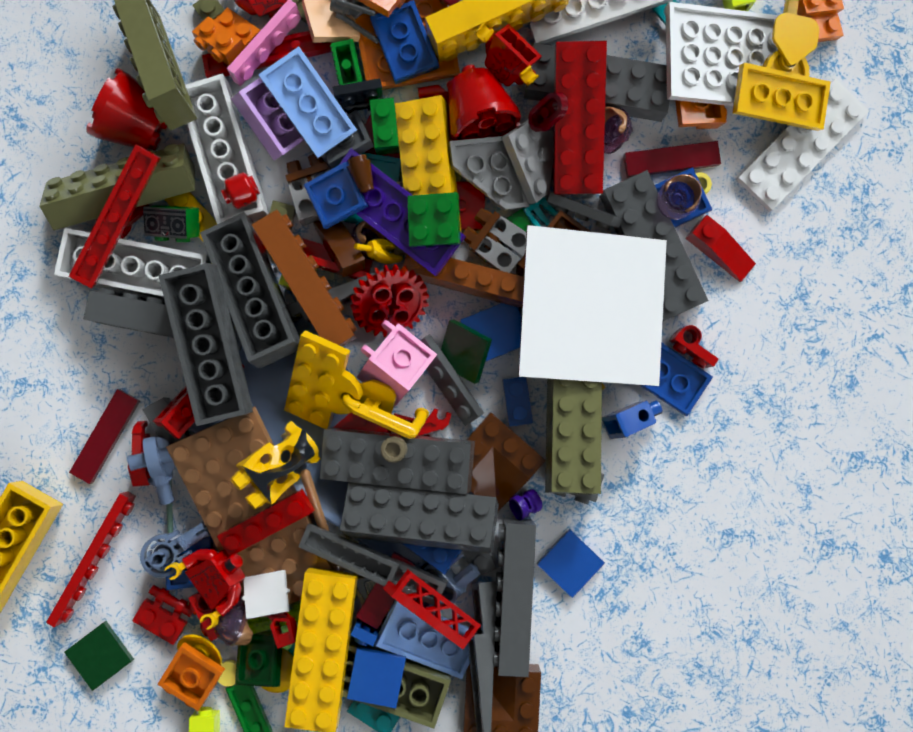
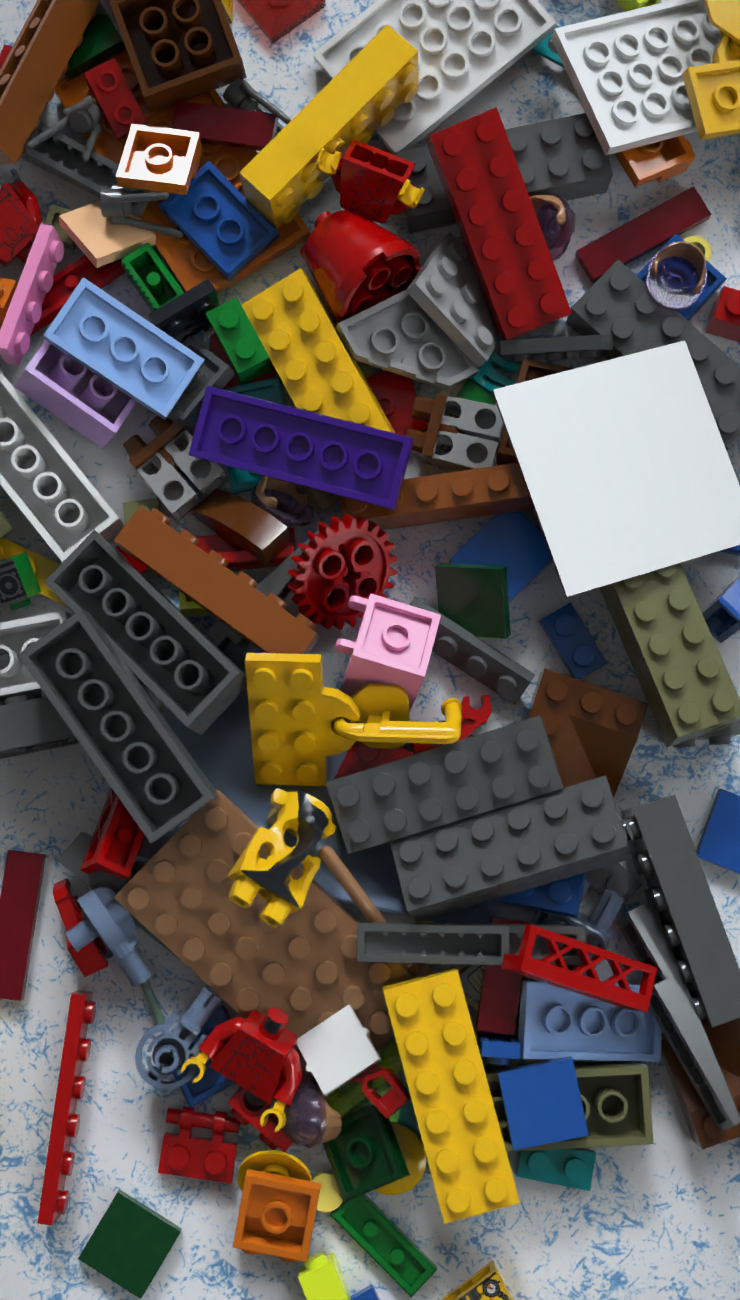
camera: 15 degrees left, 5 degrees down
(240, 190) = (78, 502): red head -> none
(265, 522) = (297, 946): red plate -> none
(335, 196) = (212, 457): blue tile -> none
(361, 172) = (236, 411): reddish brown cone -> none
(379, 250) = (301, 509): yellow hand -> none
(394, 449) = (437, 766): dark tan tile -> none
(433, 90) = (281, 271): red arm -> none
(434, 219) = (362, 433): green plate -> none
(527, 503) = (642, 780): dark purple wheel -> none
(548, 112) = (458, 229): dark red plate -> none

